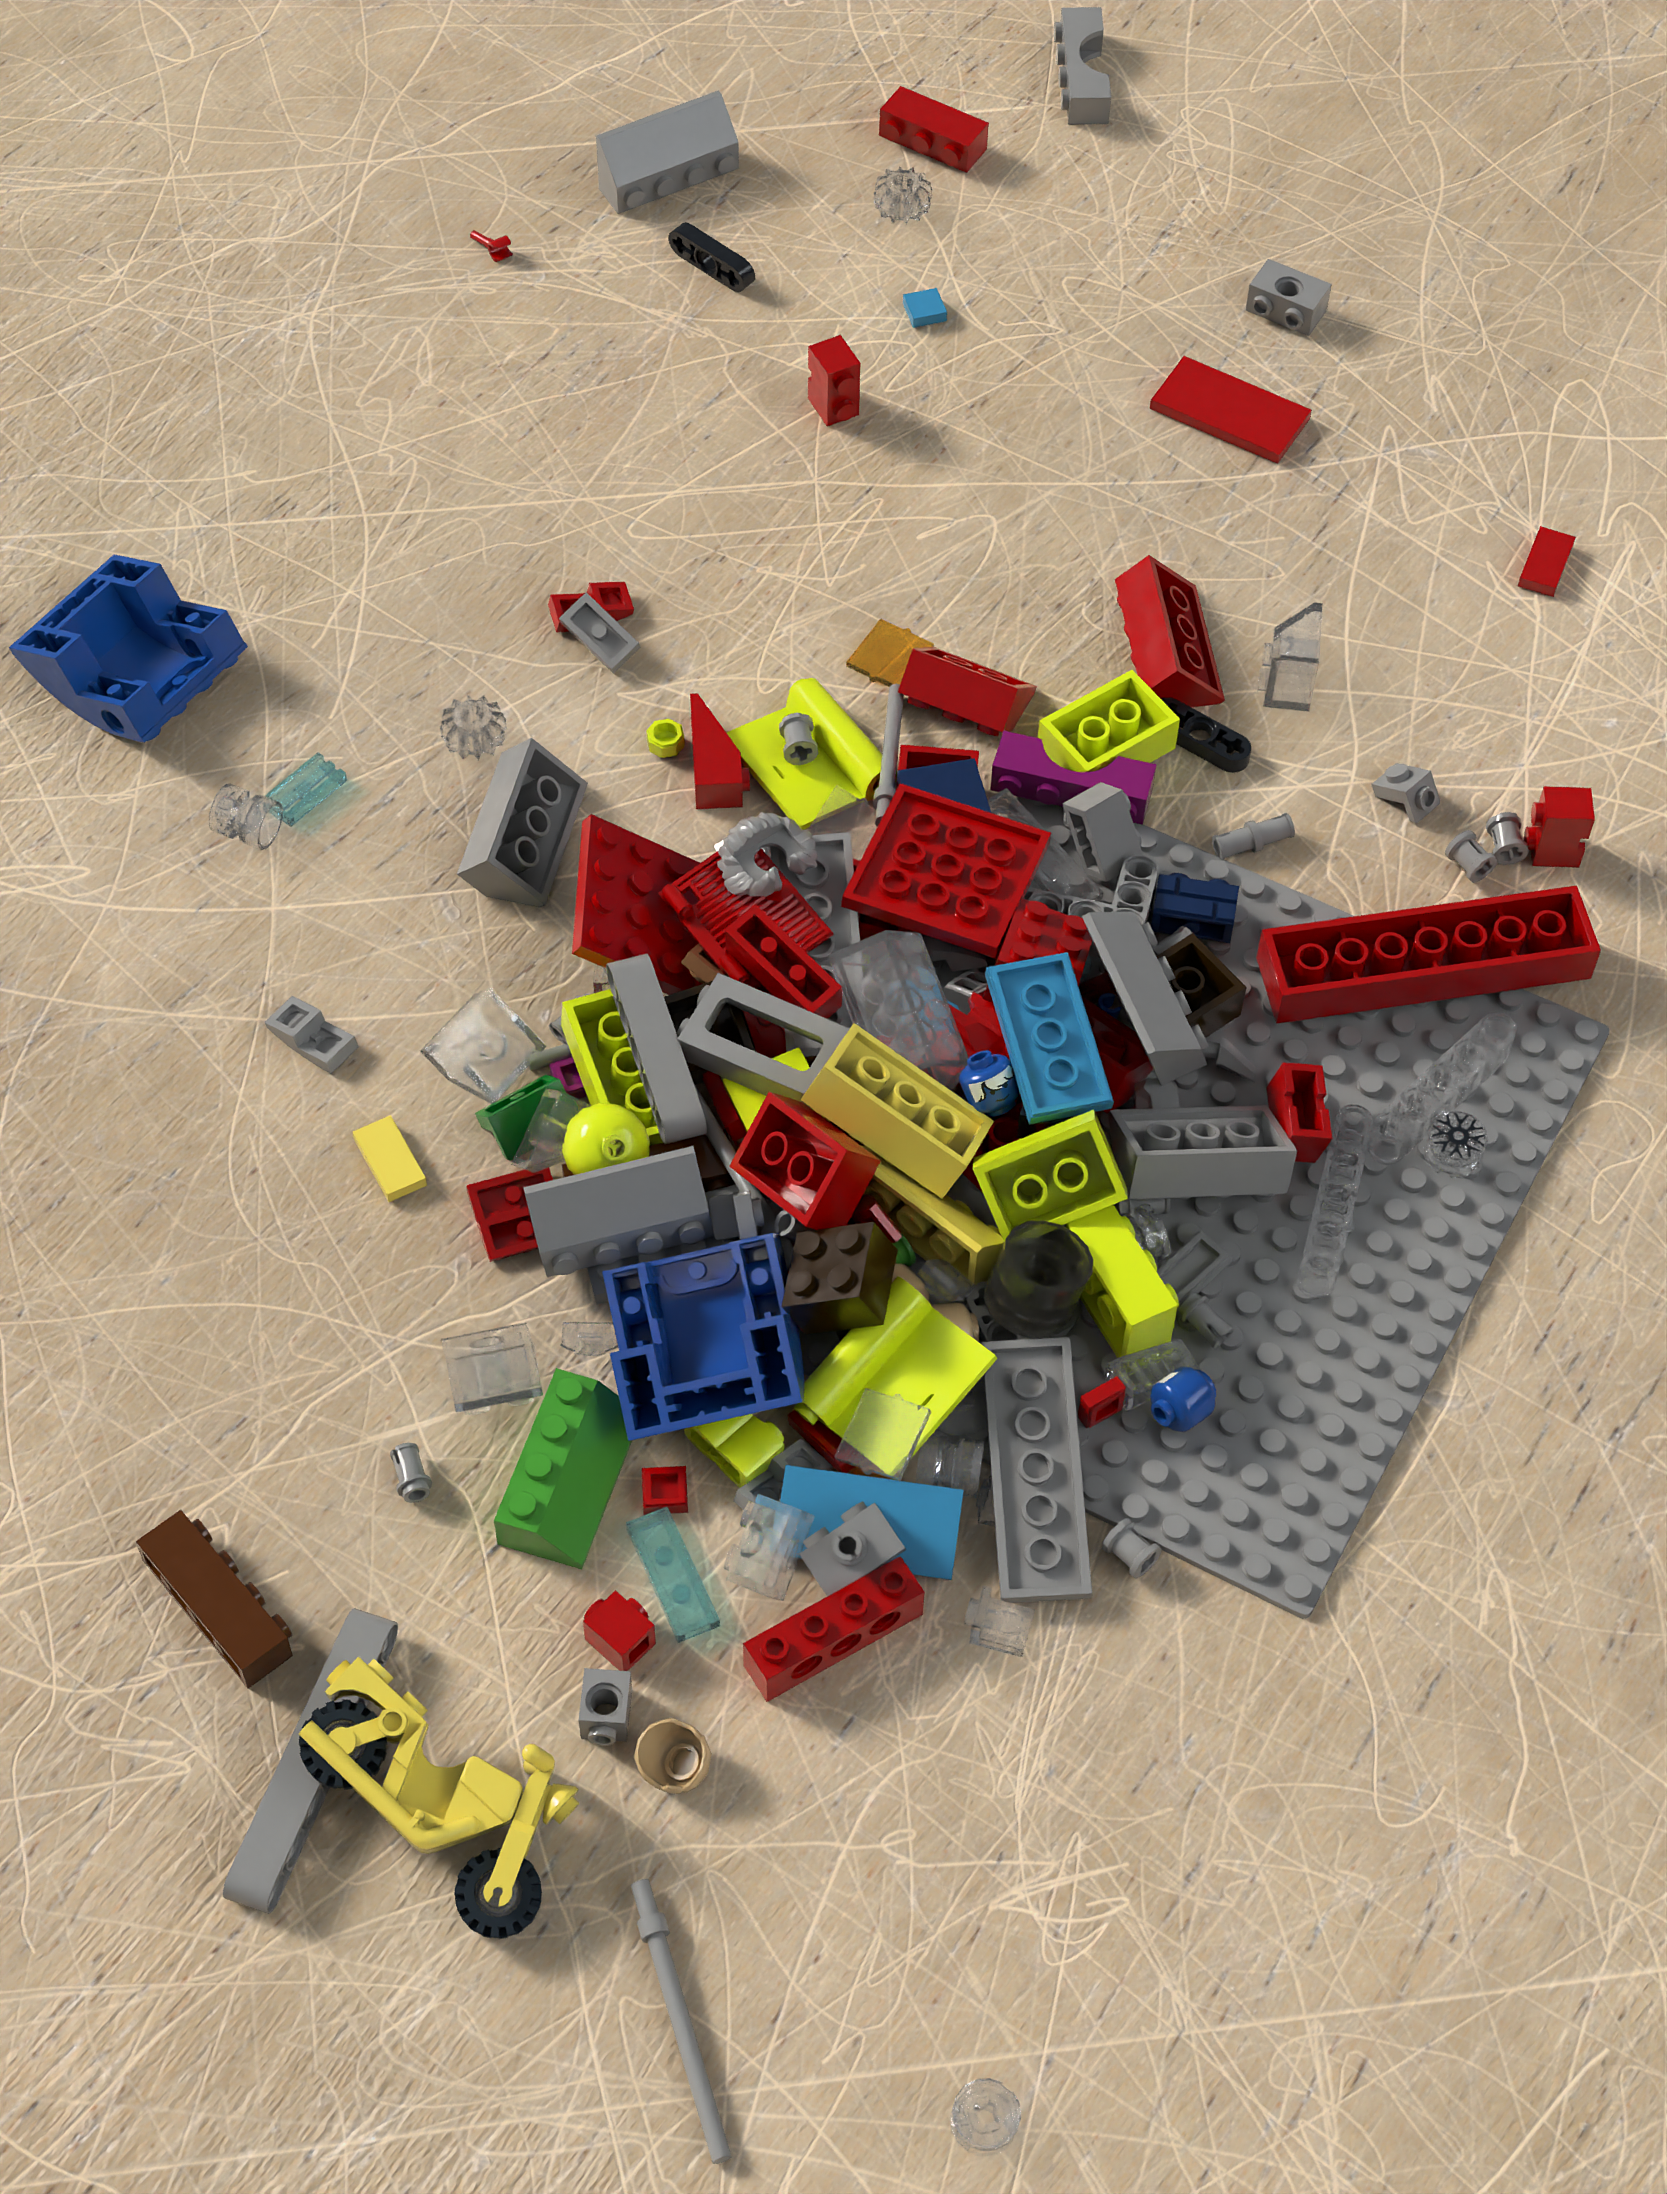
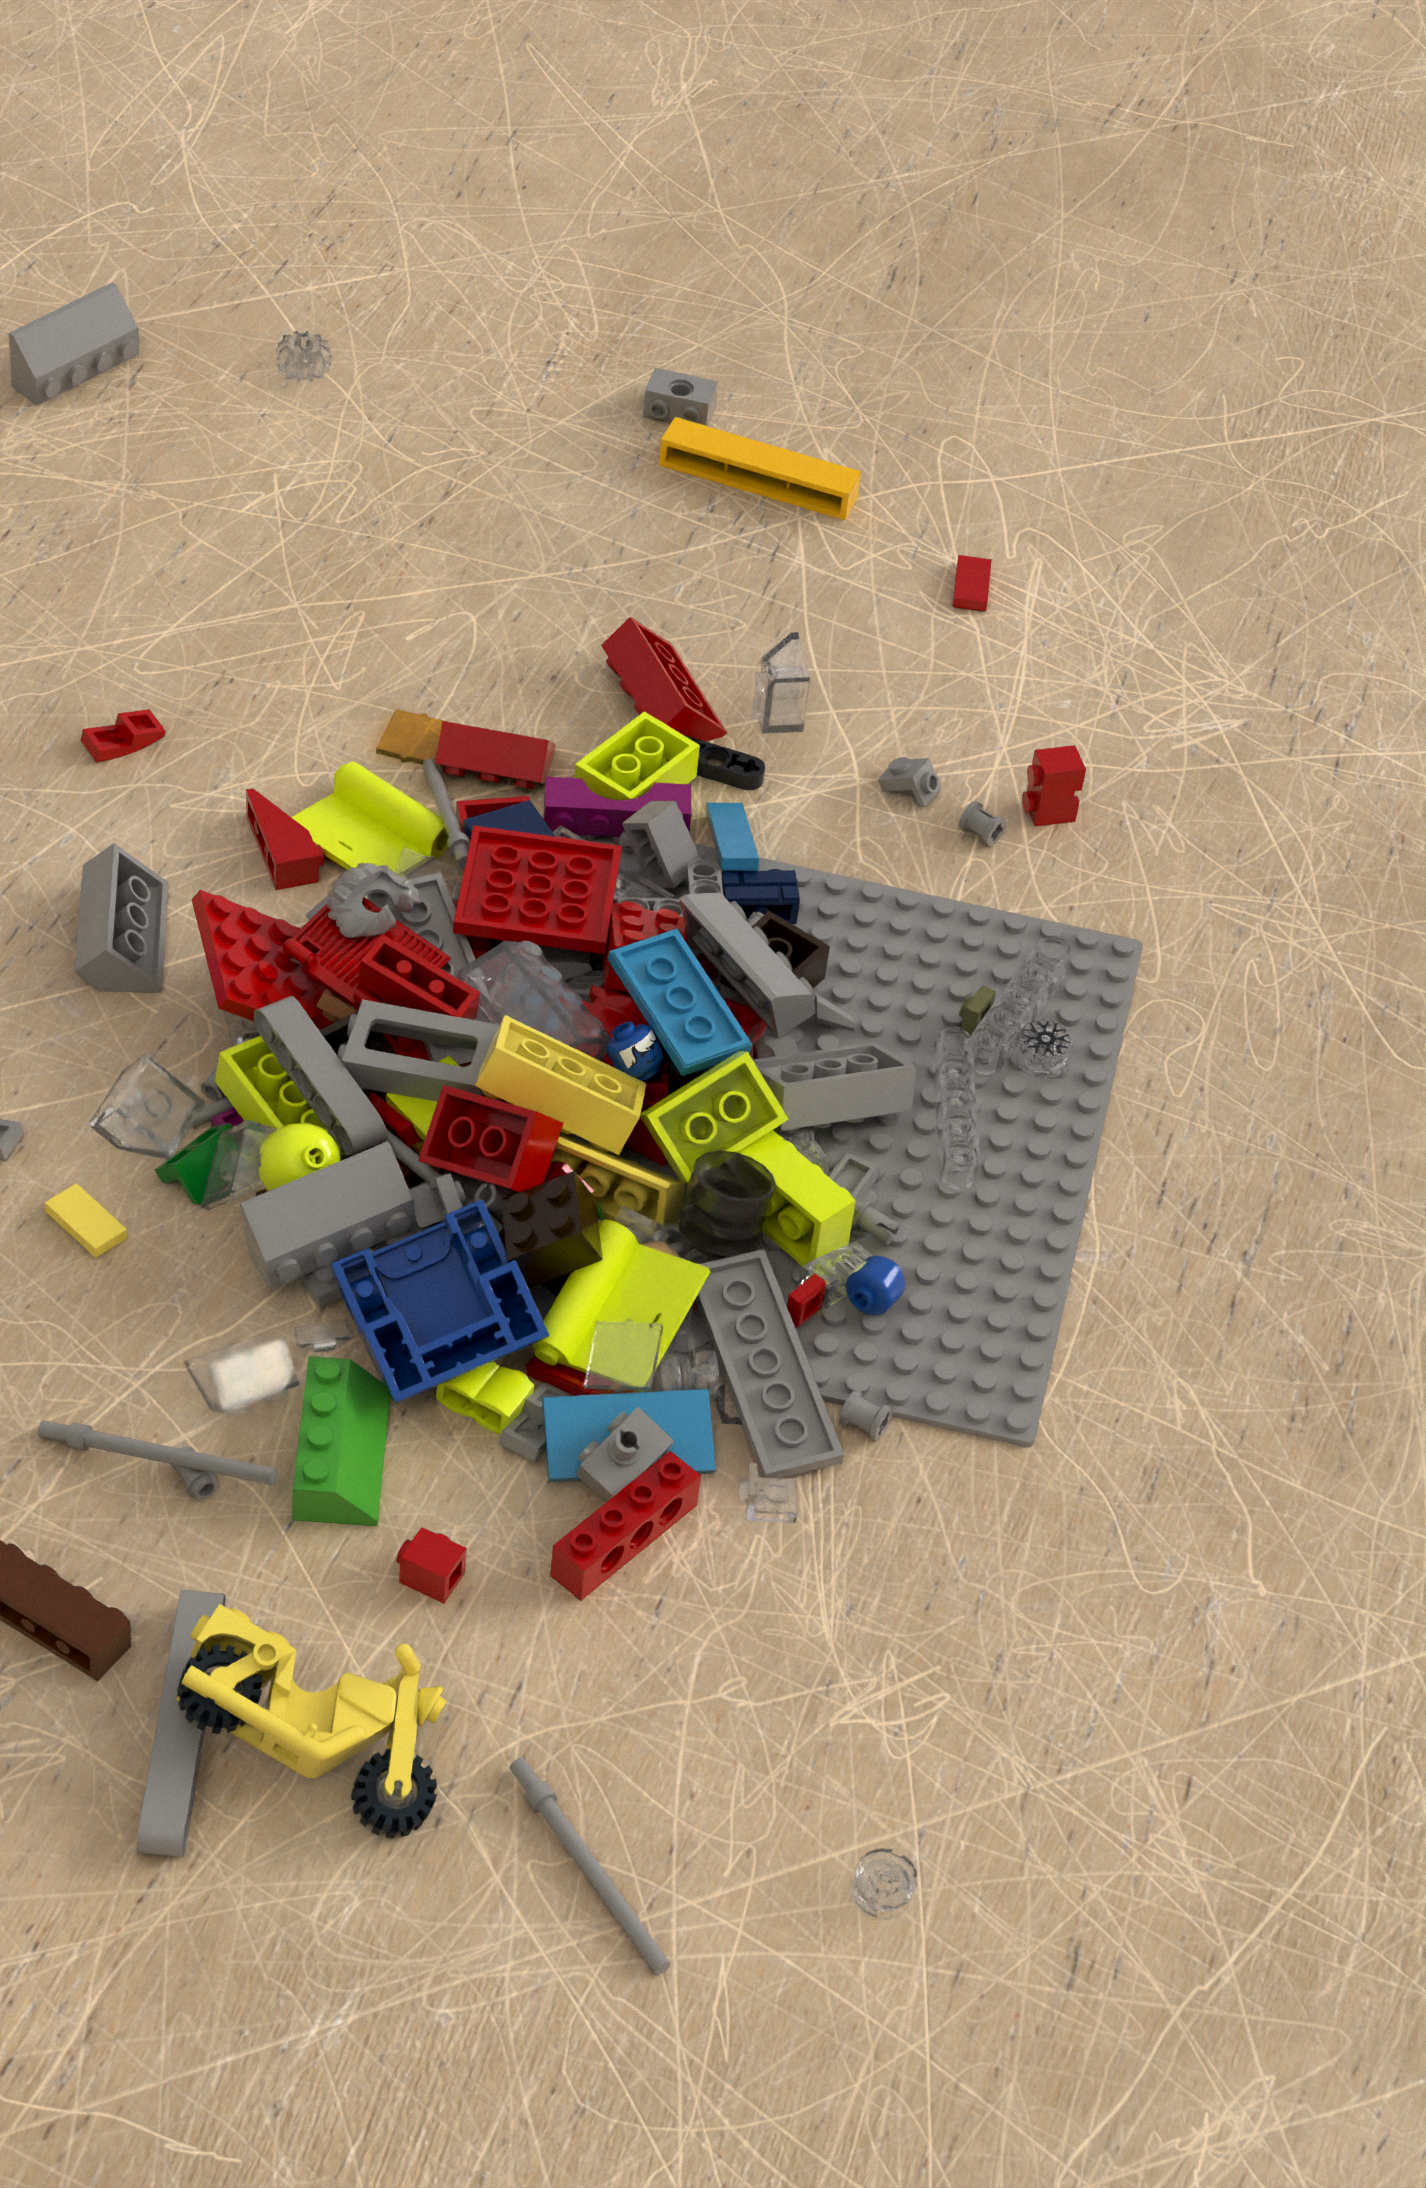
camera: 20 degrees left, 10 degrees down
(312, 1409) = (82, 1437): none -> light grey bar
(473, 727) = (47, 849): clear gear -> none
(504, 1213) = (214, 1244): red slope -> none
(599, 632) = (141, 753): light grey plate -> none
(601, 1688) = (437, 1612): light grey brick -> none
(665, 738) = (230, 833): neon yellow tile -> none
(665, 1488) = (433, 1446): red tile -> none
(672, 1574) = (463, 1512): clear light blue tile -> none
(672, 1756) = (516, 1653): tan hair -> none
(711, 257) = (161, 435): black beam -> none
(768, 1547) = (549, 1465): clear slope -> none
(799, 744) = (354, 808): light grey bush -> none
(834, 380) = (294, 515): red brick -> none
(924, 307) = (352, 448): dark azure tile -> none
(933, 129) = (313, 298): red brick -> none
(1086, 90) = (442, 252): light grey arch -> none
(1186, 831) = (732, 837): none -> dark azure tile
(1230, 409) = (656, 497): red tile -> none
(1253, 836) = (789, 835): light grey pin -> none
(1298, 1105) = (900, 1030): red brick -> none
(1351, 392) = (759, 468): none -> yellow brick
(1392, 1084) = (975, 1008): none -> olive plate
(1427, 954) = (972, 901): red brick -> none
(1507, 838) = (1010, 807): light grey bush -> none

